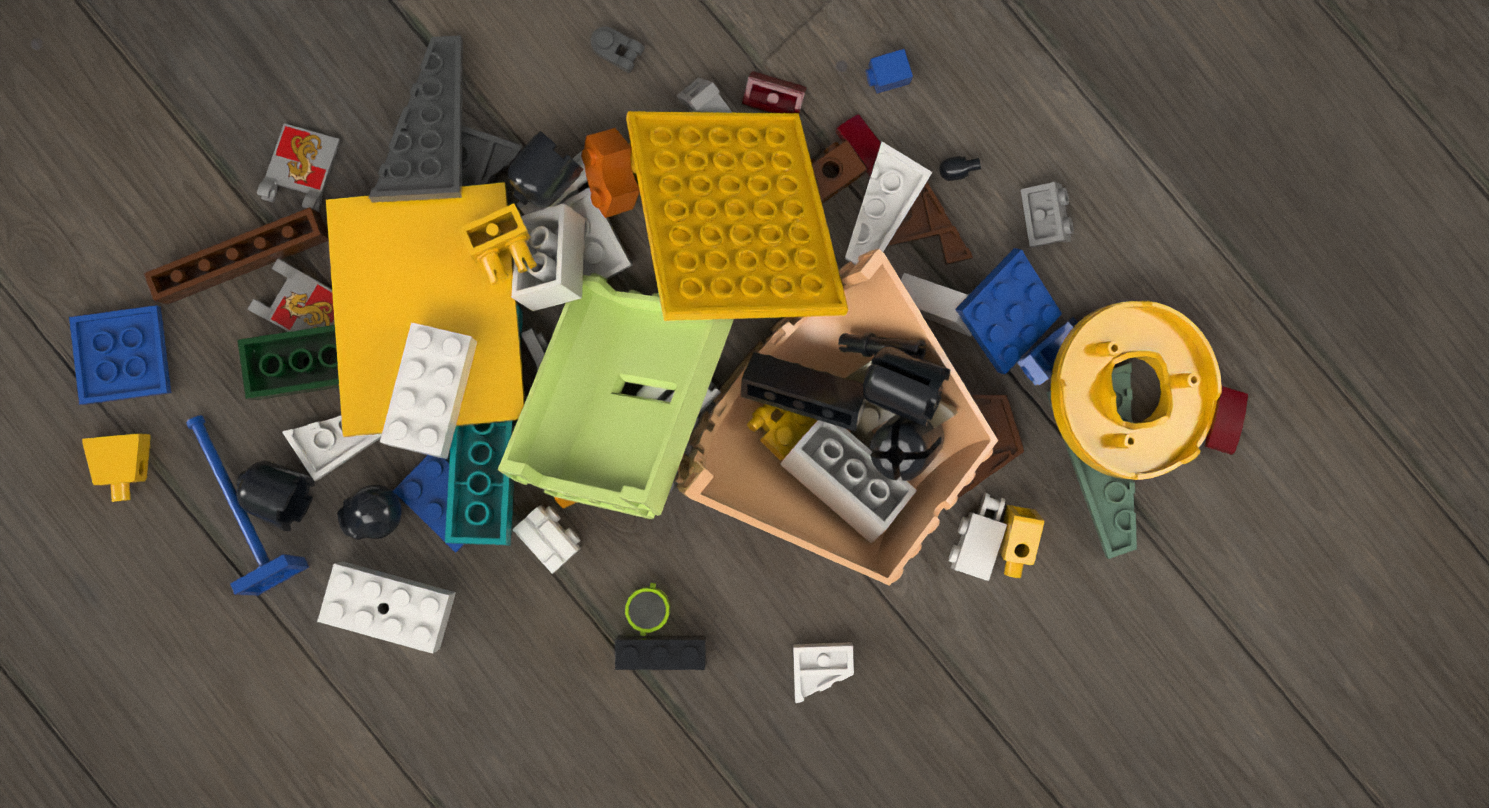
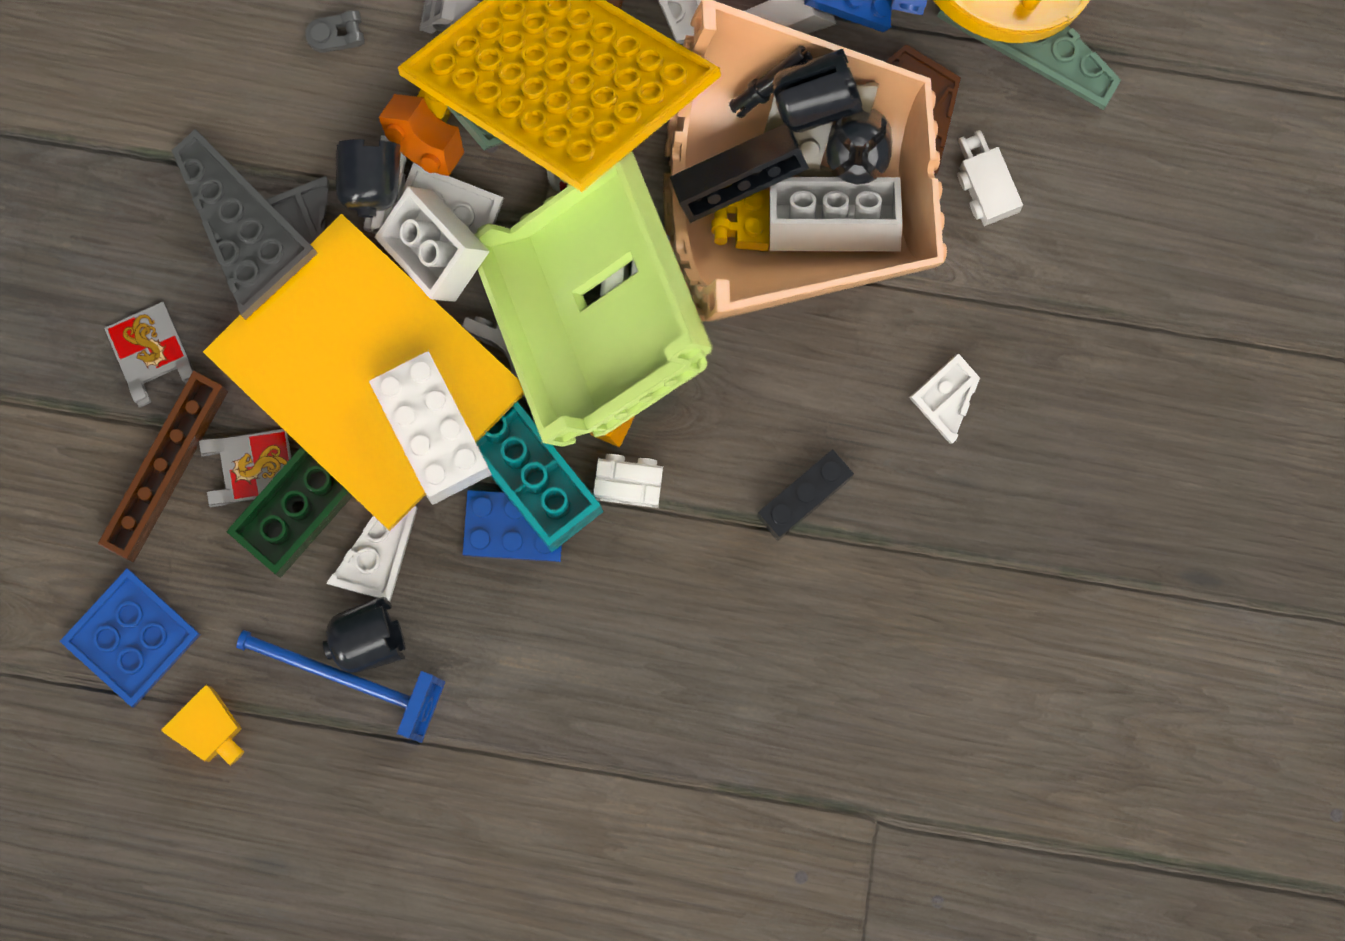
camera: 45 degrees left, 5 degrees down
(370, 513) = (462, 584): black hair -> none
(415, 613) = (573, 644): white brick -> none
(494, 234) = (373, 256): yellow brick -> none
(647, 609) = (763, 470): pearl dark grey piece -> none
(1022, 528) = (1019, 138): yellow torso -> none

